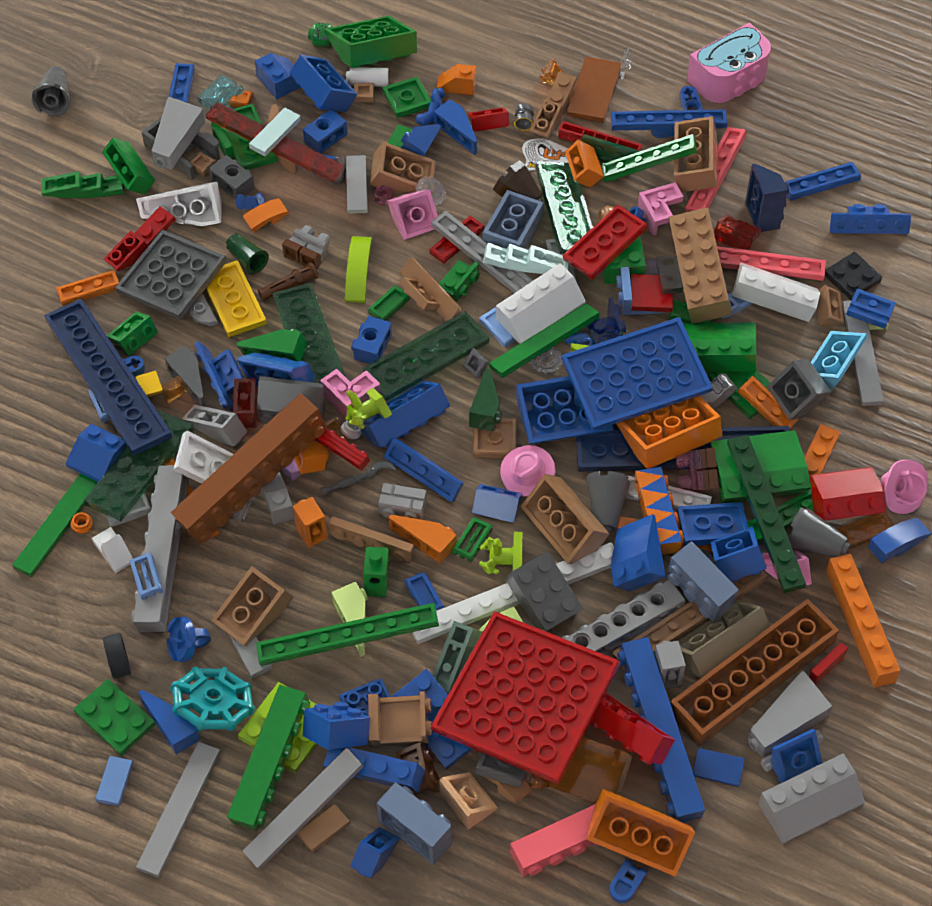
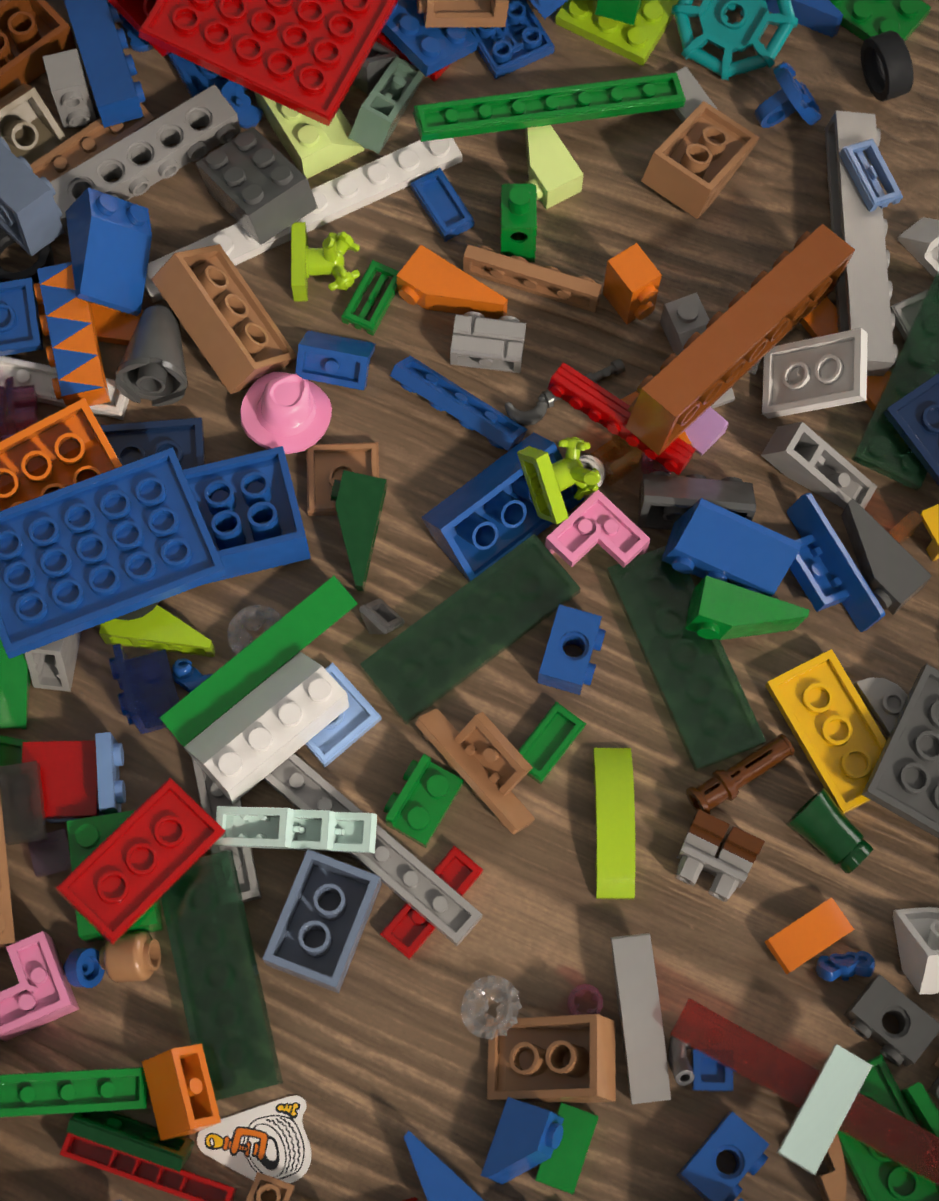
camera: 175 degrees right, 15 degrees up
(246, 401) = (775, 496): clear red brick -> none
(413, 213) = (522, 948): bright pink slope -> none
(518, 181) = (313, 1020): dark brown cone -> none

